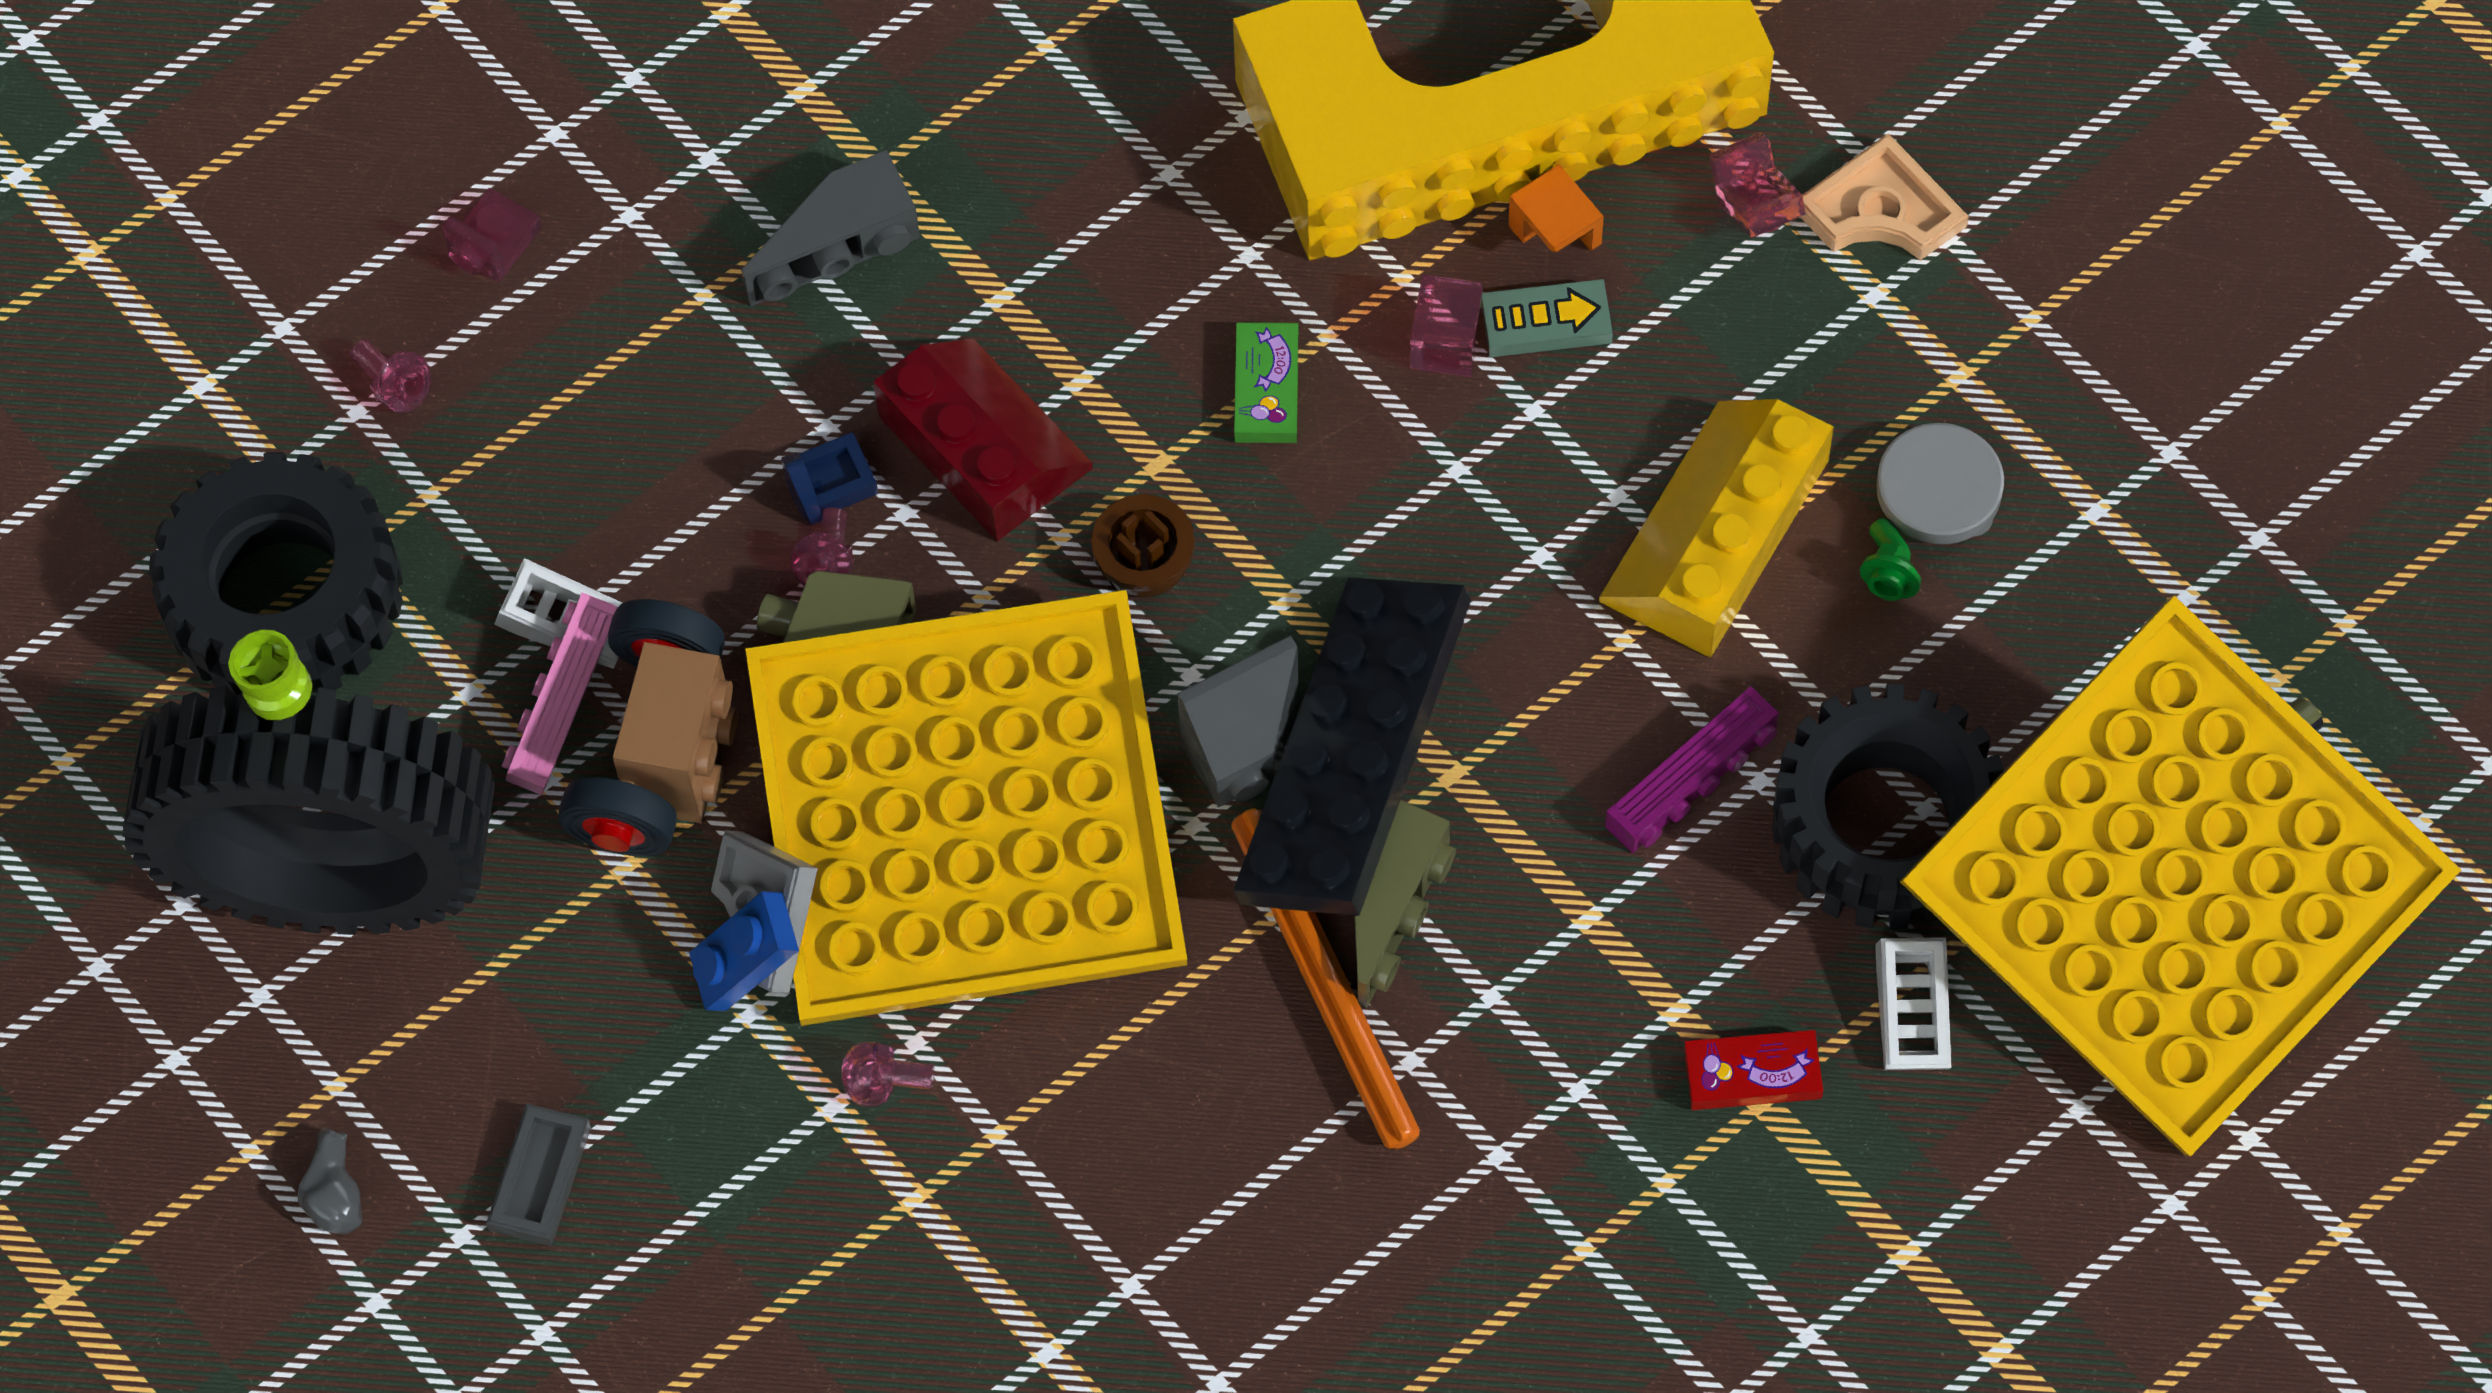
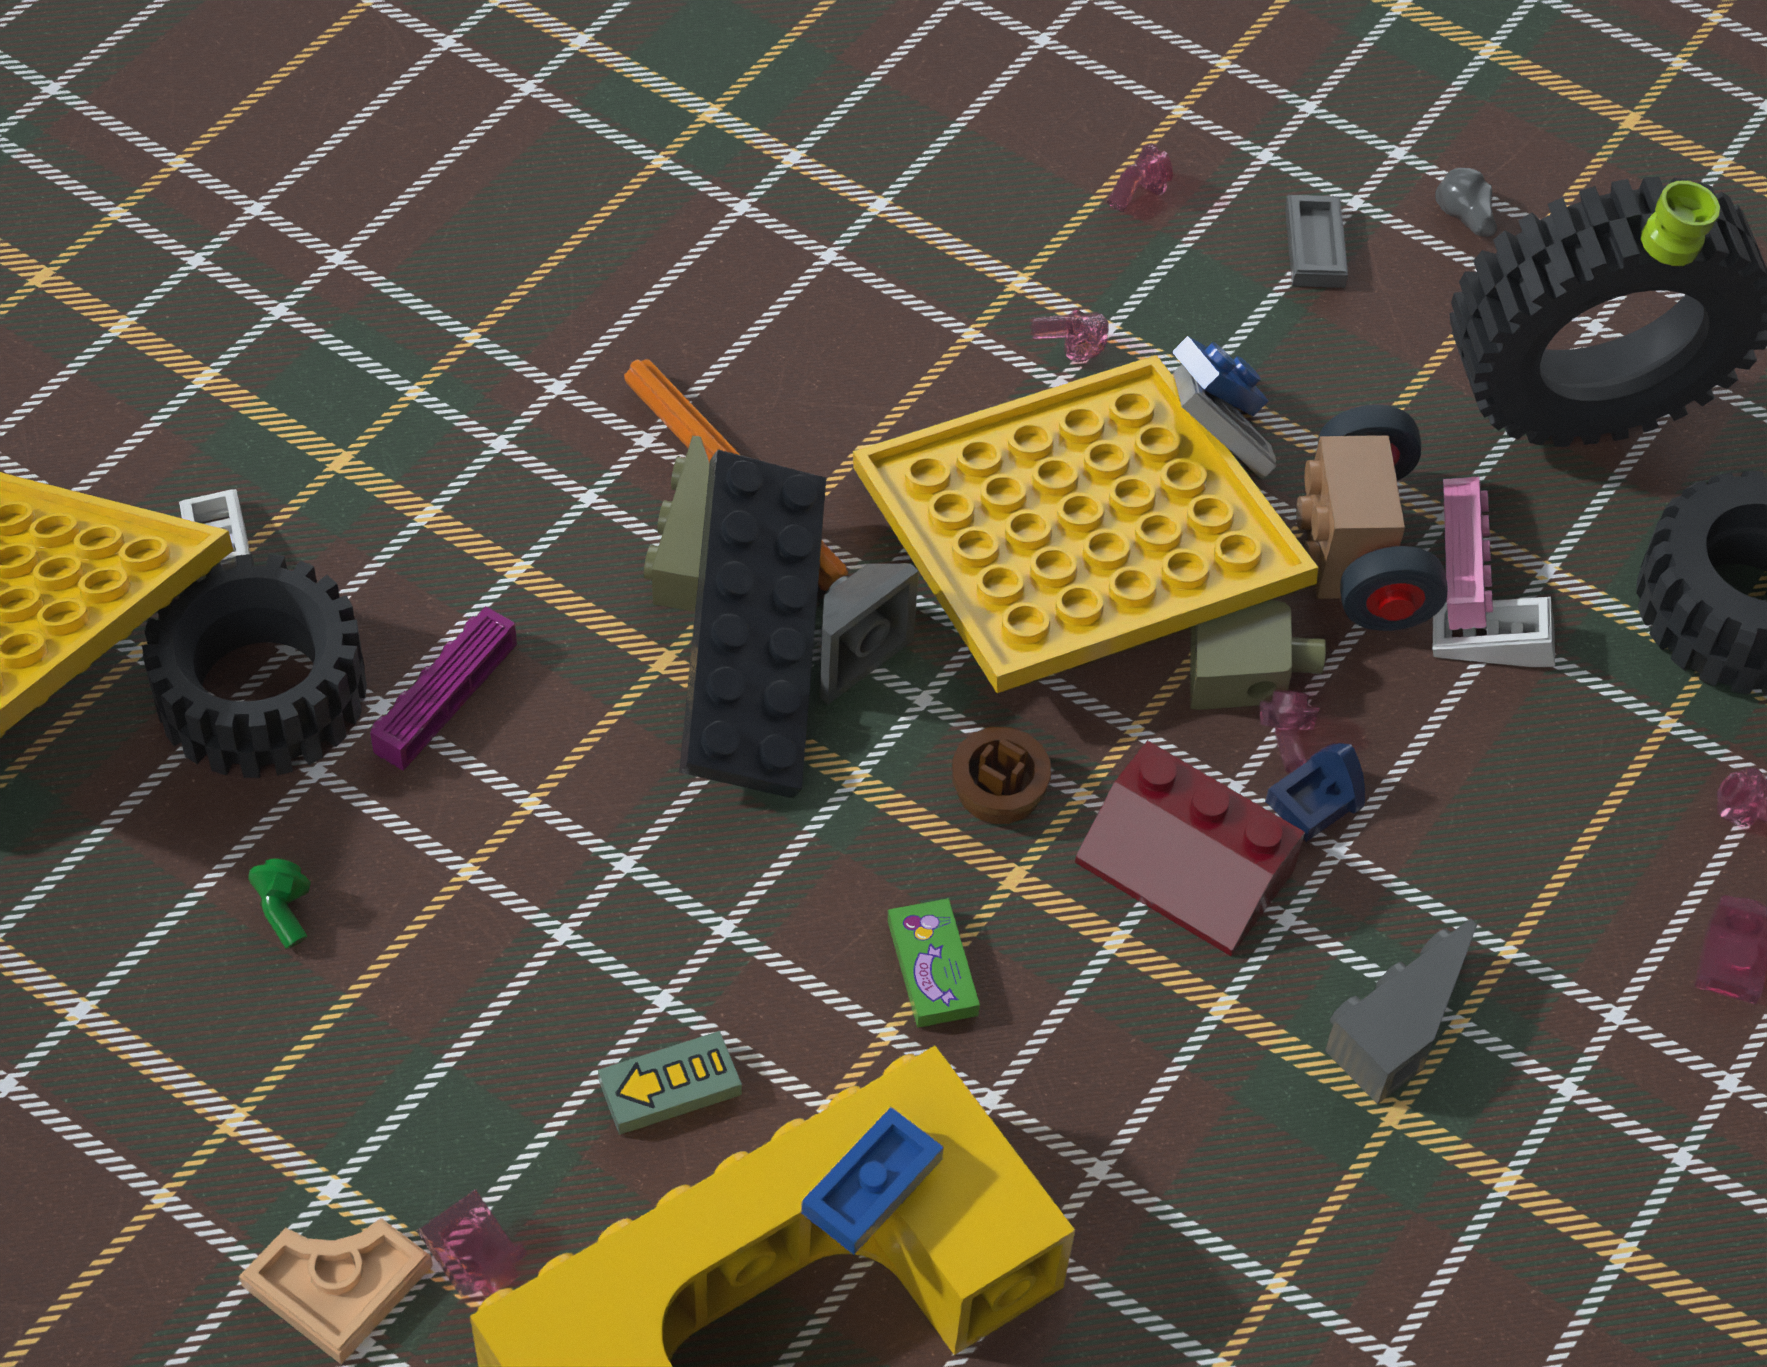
camera: 160 degrees right, 10 degrees down
(707, 1300) = (1150, 170): none -> clear pink plate
(1401, 71) = (872, 1180): none -> blue plate
(1445, 325) = (769, 1028): clear pink panel -> none
(1555, 212) = (673, 1157): orange panel -> none
(1720, 520) = (455, 904): yellow slope -> none
(1753, 1070) = (351, 471): red tile -> none
(1940, 484) = (240, 985): light grey tile -> none

